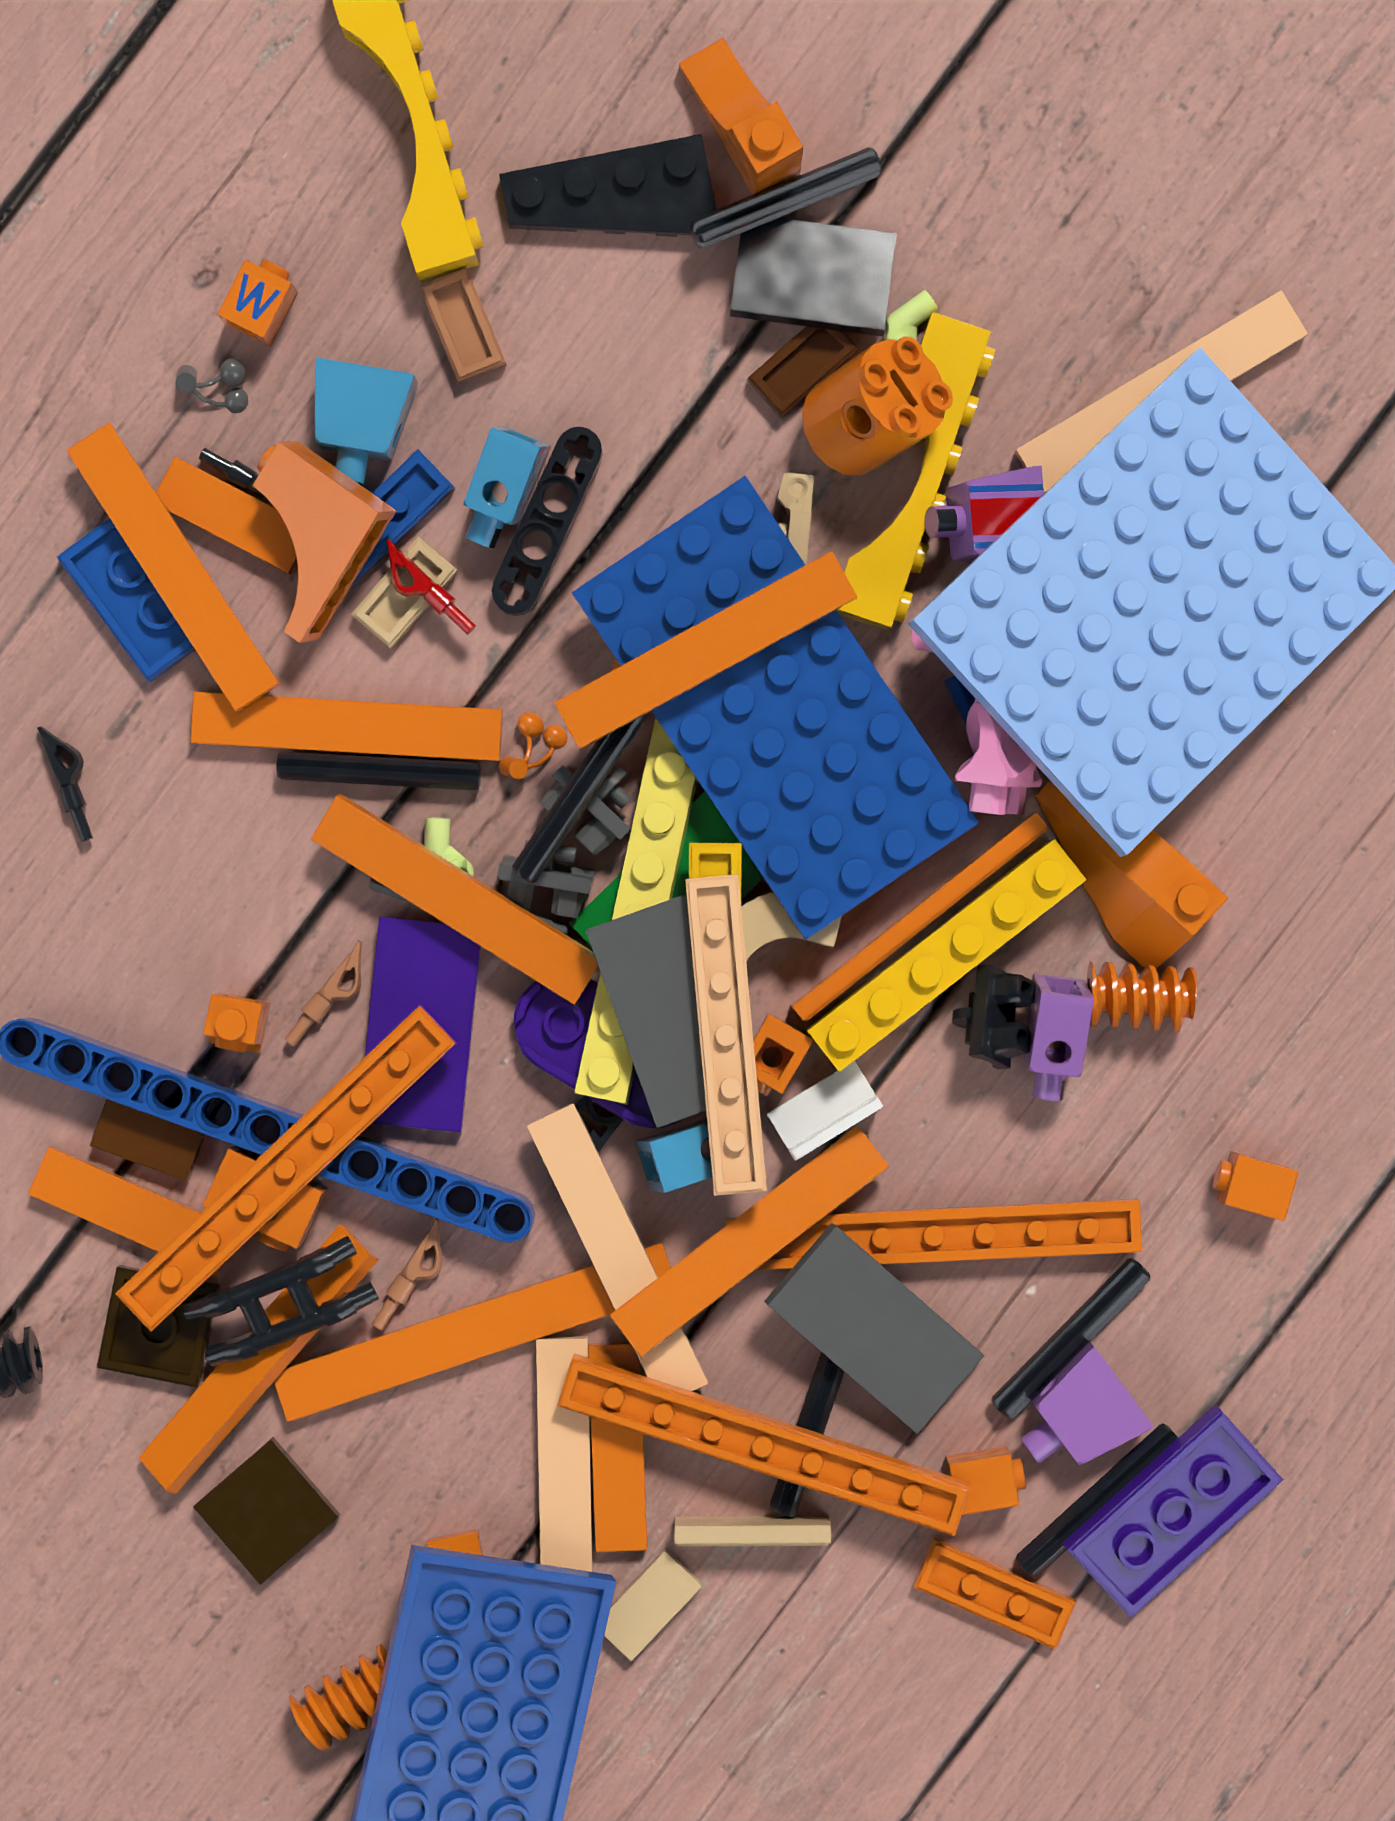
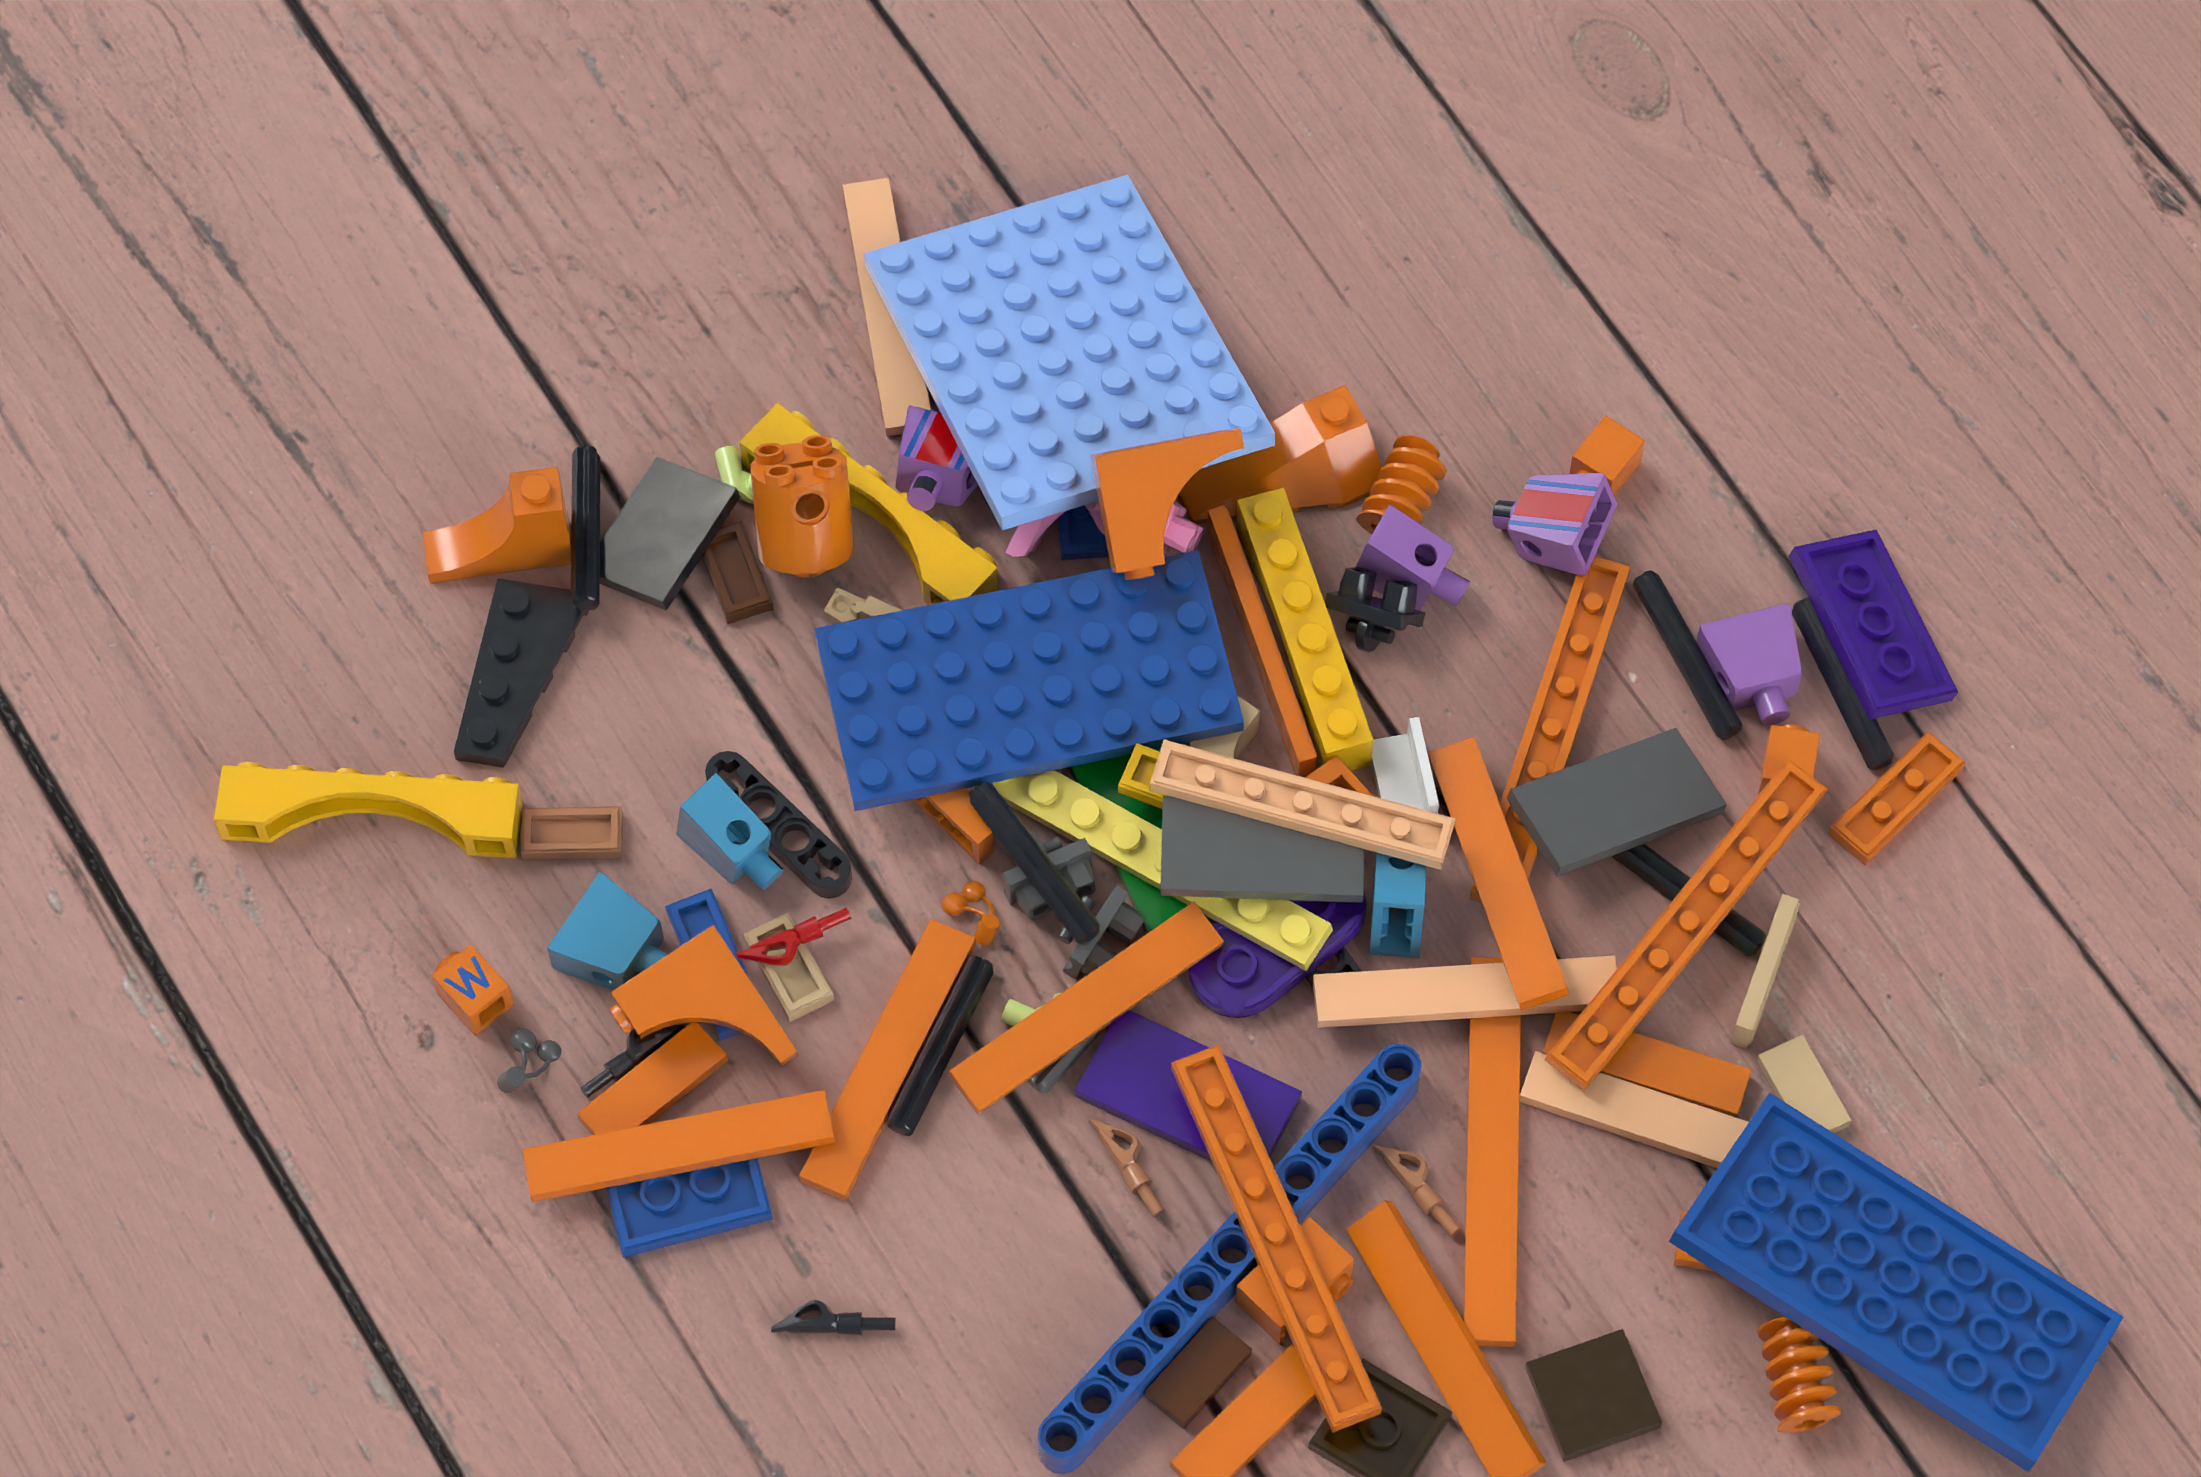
camera: 65 degrees left, 25 degrees down
(236, 1022) = (1120, 1245): orange brick -> none
(294, 1278) = (1381, 1315): black piece -> none
(705, 650) = (954, 706): orange tile -> none
(1004, 751) = (1139, 489): none -> orange arch
(1163, 1164) = (1559, 519): none -> medium lavender torso

